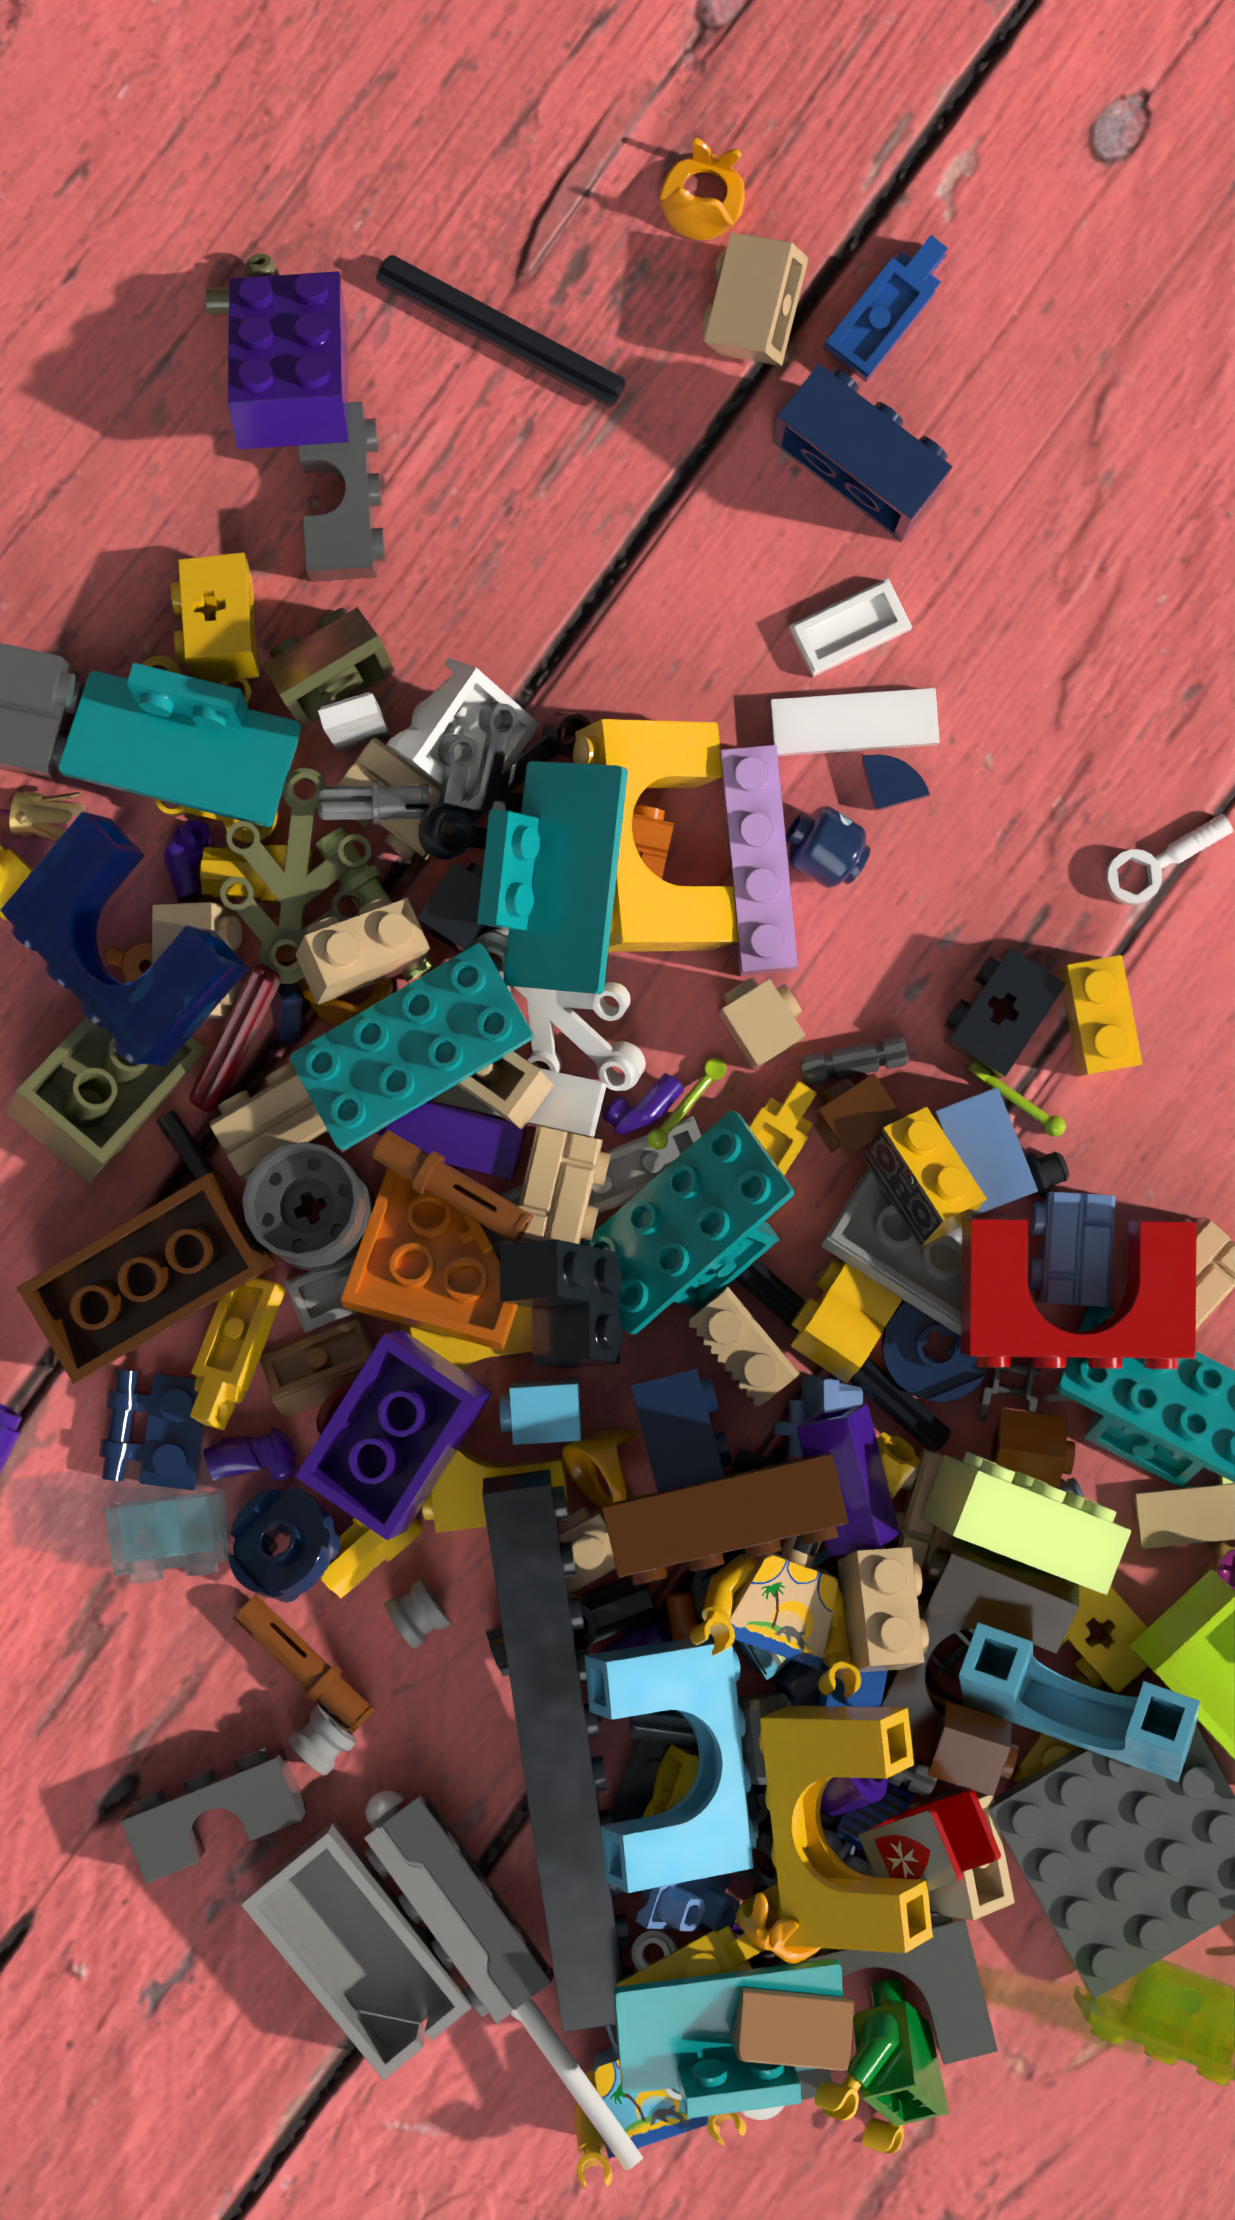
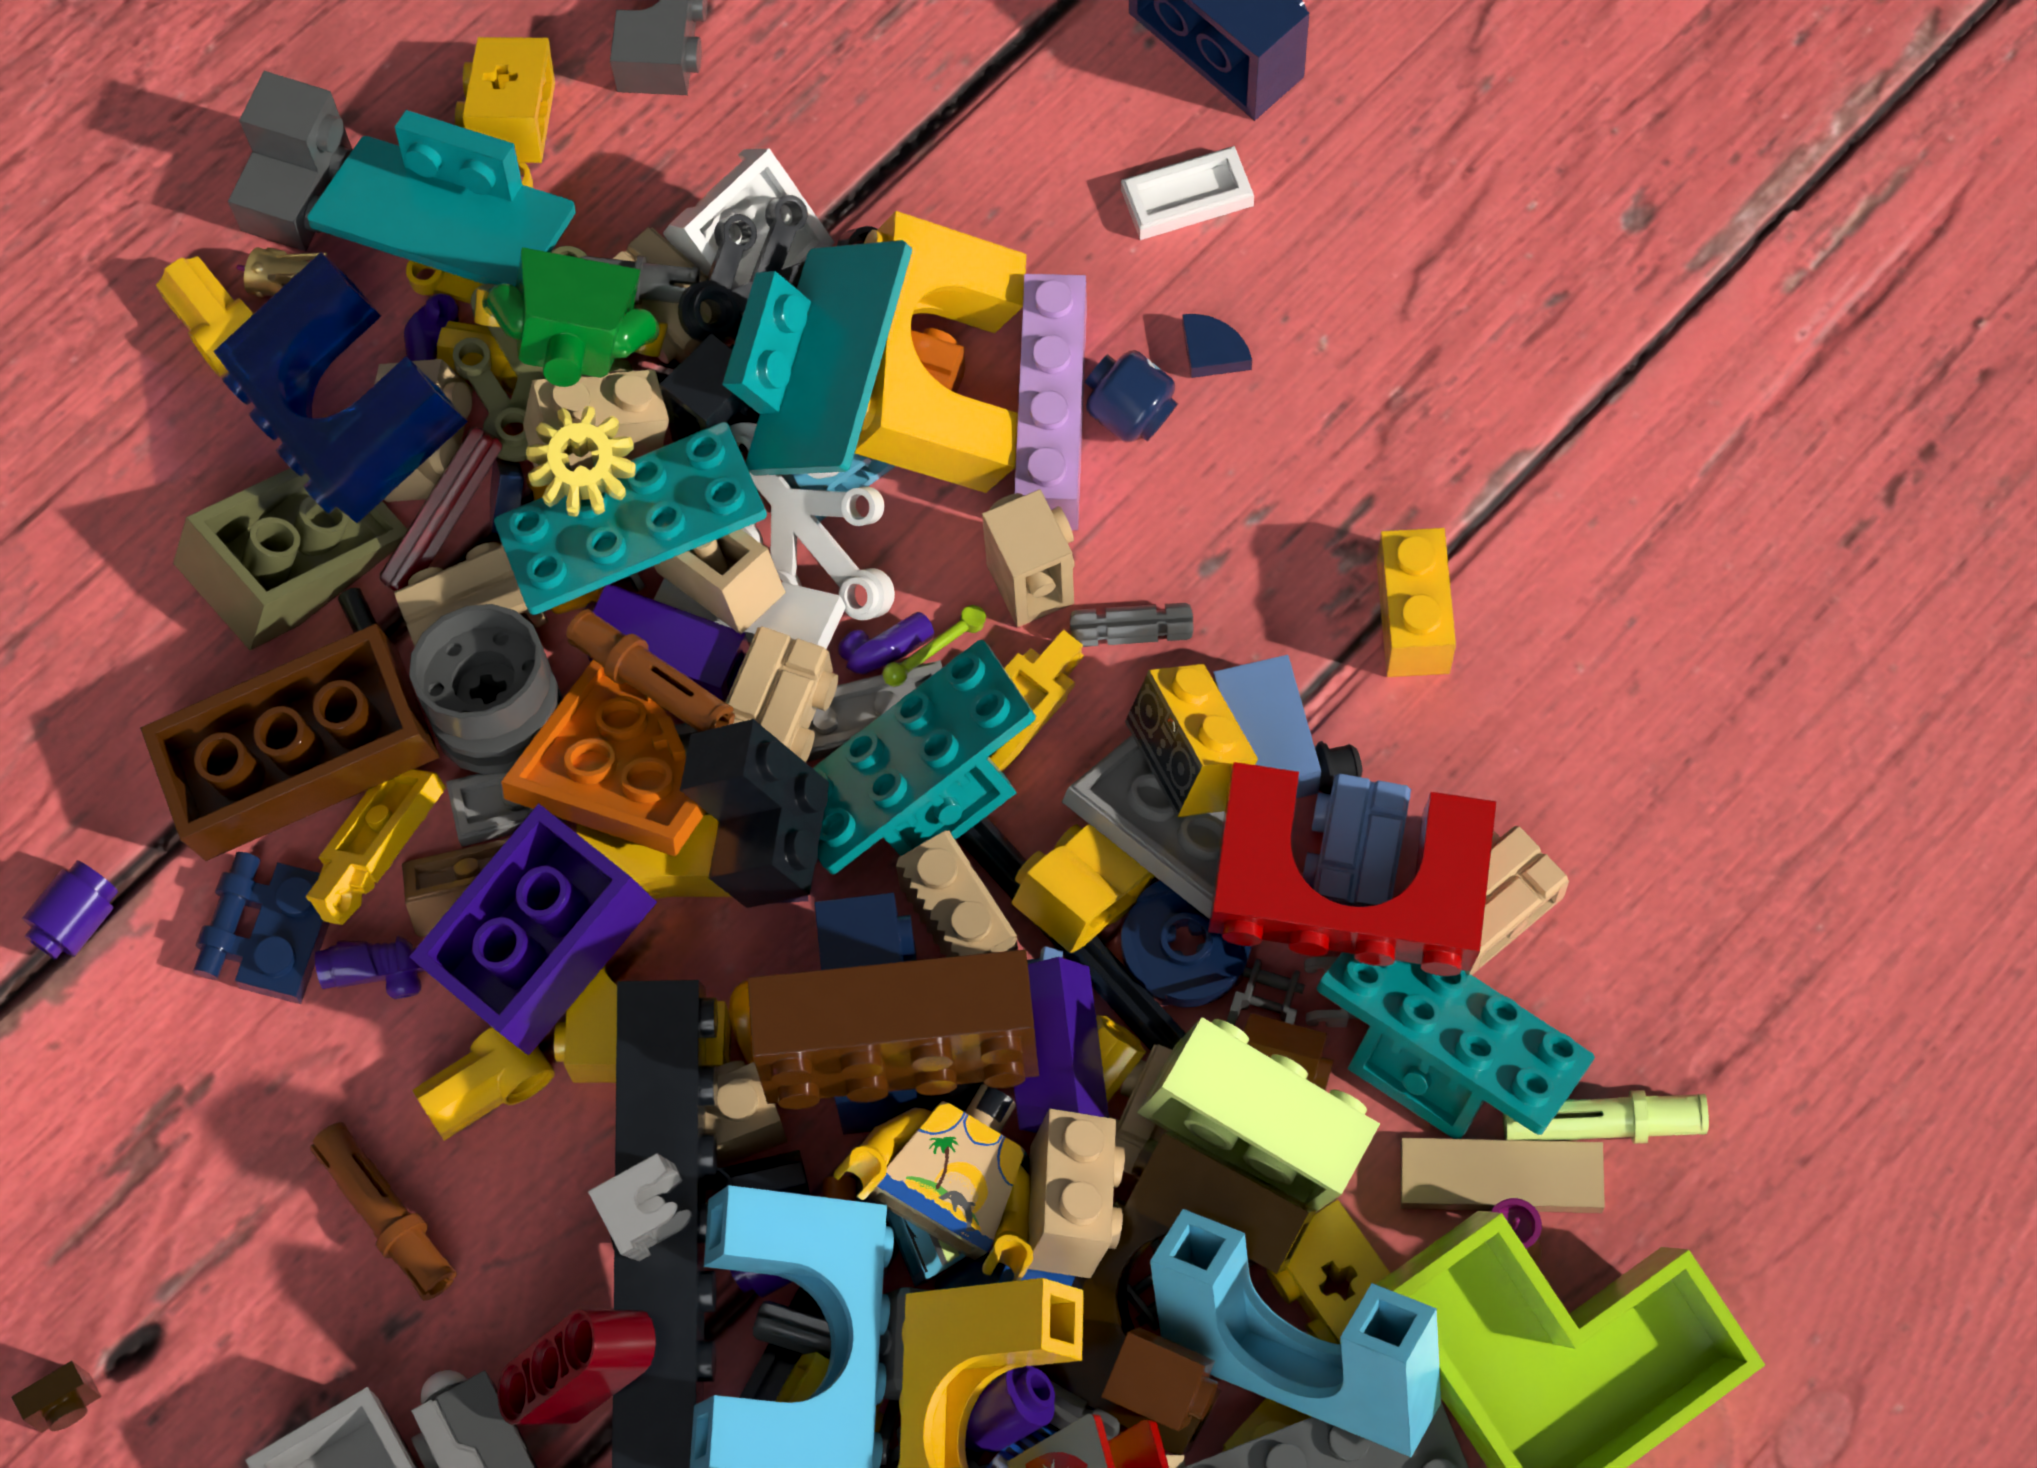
camera: 10 degrees right, 20 degrees down
(70, 1858) = (57, 1398): none -> dark brown plate
(168, 1535) = (255, 1034): clear light blue brick -> none
(256, 1791) = (180, 1376): dark grey arch -> none
(305, 1559) = (377, 1090): dark blue plate -> none
(321, 1740) = (386, 1299): light grey wheel -> none
(325, 869) = (571, 315): none -> green torso
(328, 665) = (619, 157): slope -> none
(353, 722) = (628, 190): white tile -> none
(369, 1035) = (580, 439): none -> light yellow gear
(417, 1613) = (527, 1166): light grey wheel -> none
(499, 1805) = (576, 1366): none -> dark red beam
(528, 1692) = (634, 1209): none -> light grey hinge
(542, 1411) = (712, 938): medium azure brick -> none
(854, 1114) = (1115, 671): reddish brown brick -> none
(855, 722) = (1179, 283): white tile -> none
(1030, 997) = (1297, 620): black brick -> none
(1053, 1125) = (1351, 720): lime hinge -> none
(1175, 853) = (1520, 453): white piece -> none

